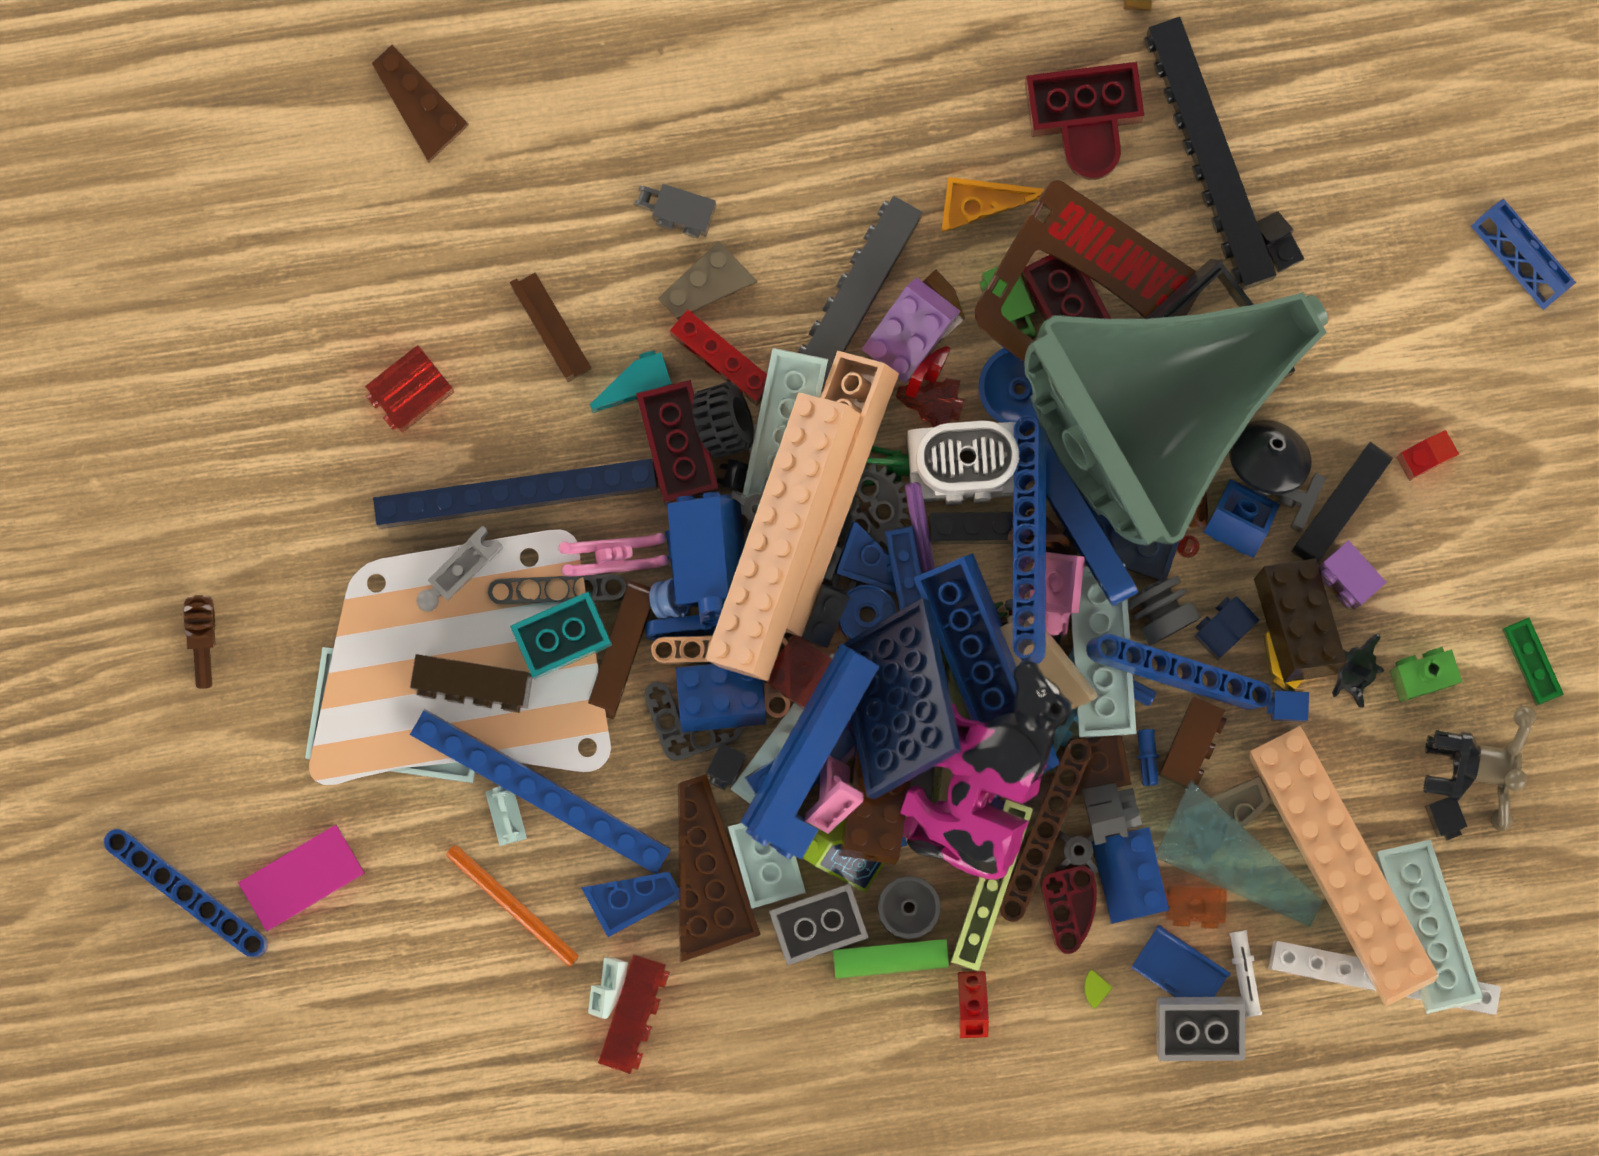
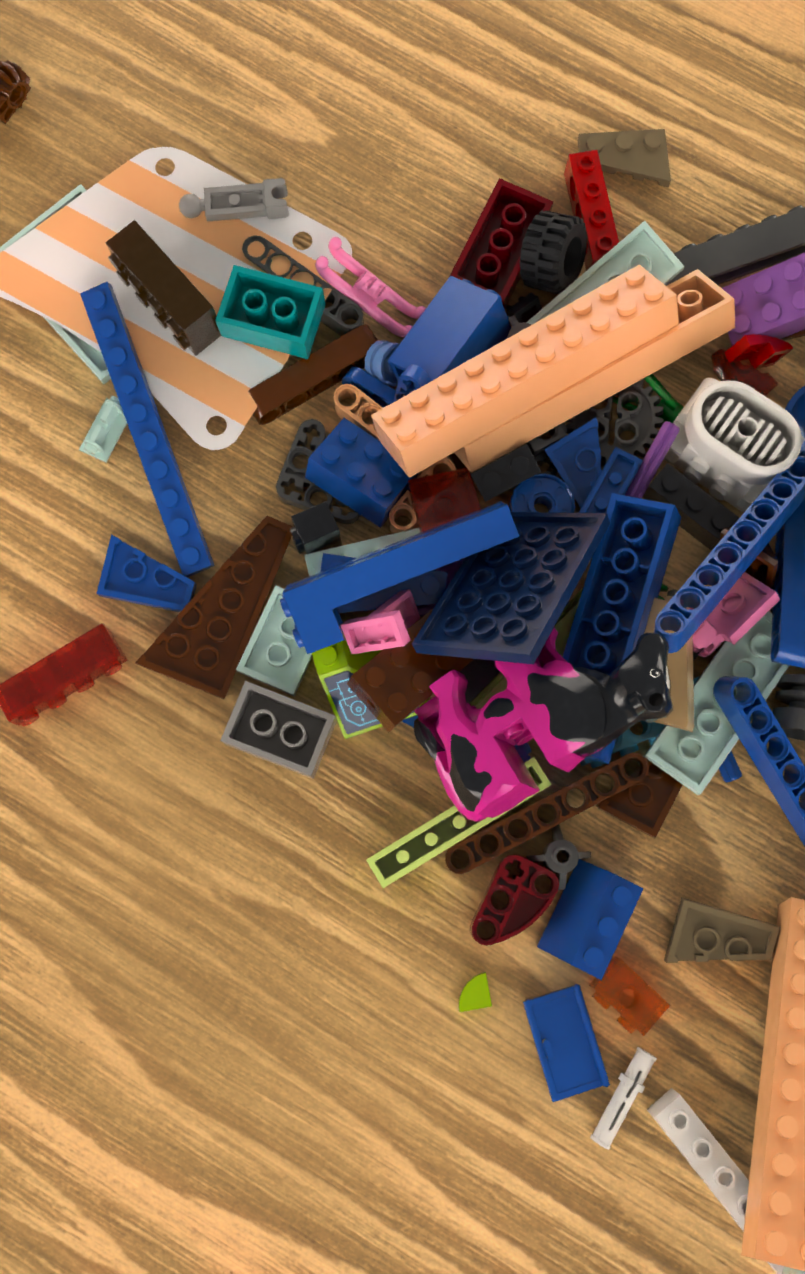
camera: 40 degrees right, 5 degrees down
(408, 390) = (321, 50): clear red brick -> none
(512, 905) = (45, 506): orange axle -> none
(515, 493) = (334, 187): dark blue brick -> none
(551, 326) = (473, 91): reddish brown fence -> none
(605, 996) = (51, 639): light aqua slope -> none
(642, 375) = (484, 174): teal slope -> none
(678, 209) = (653, 81): dark grey brick -> none
(891, 958) = (316, 812): bright green brick -> none
(892, 904) = (369, 761): dark grey wheel -> none
(973, 1004) = (354, 914): red bracket -> none
(1111, 811) = (619, 845): dark grey hips -> none
(1148, 757) = (689, 826): blue axle -> none
(1193, 743) = (740, 847): reddish brown brick -> none
(1200, 1028) = (542, 1117): light grey brick -> none
(1220, 850) = (691, 965): clear light blue wing -> none

